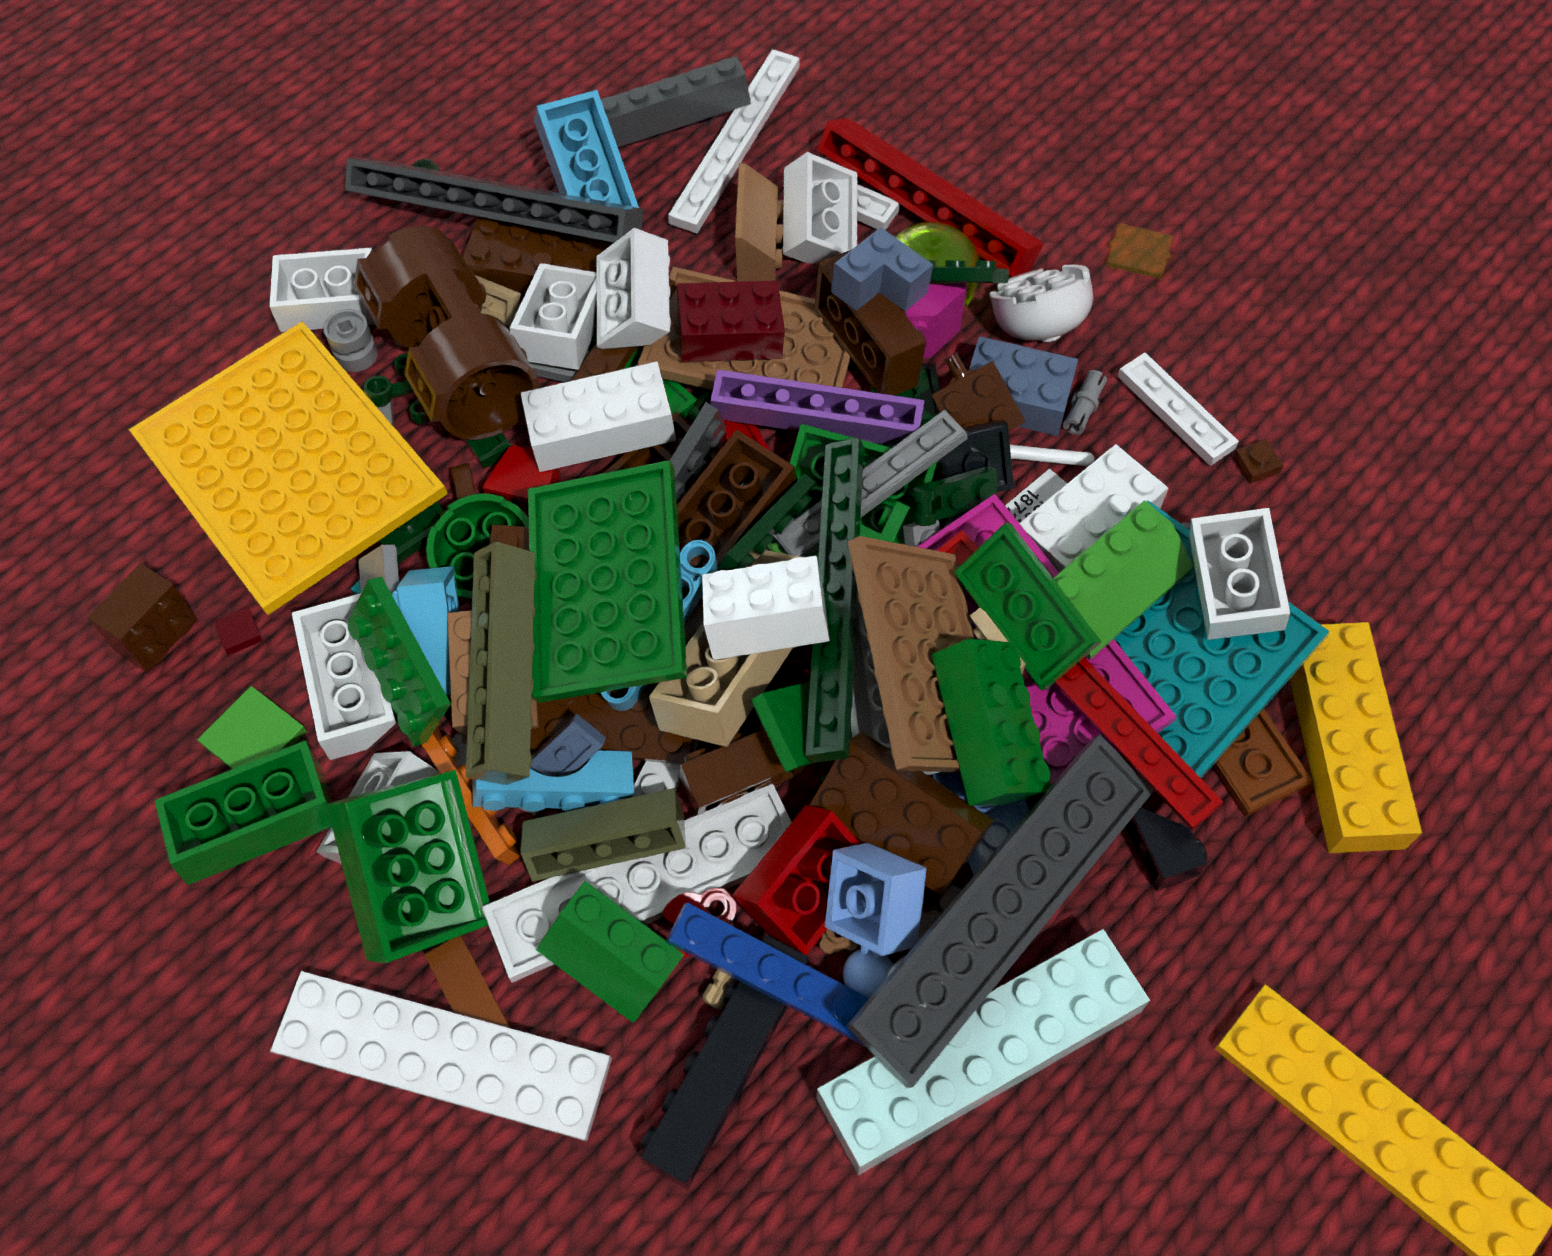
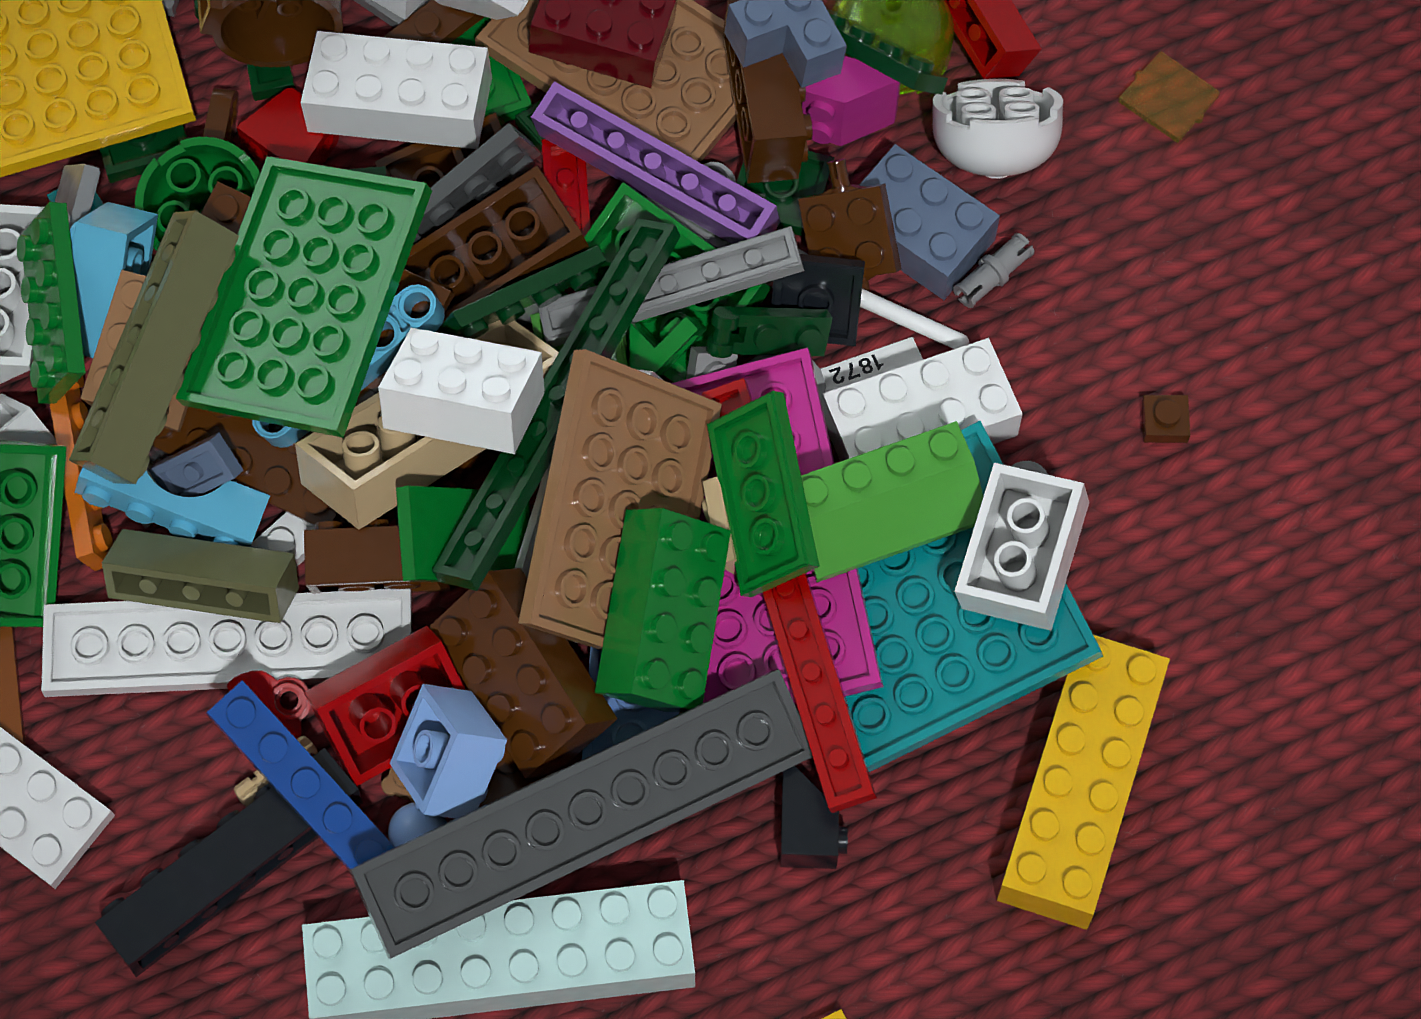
camera: 20 degrees right, 5 degrees up
(609, 951) = (153, 701): green slope -> none
(1178, 409) = (1100, 318): white plate -> none
(1261, 767) = (969, 773): dark orange tile -> none

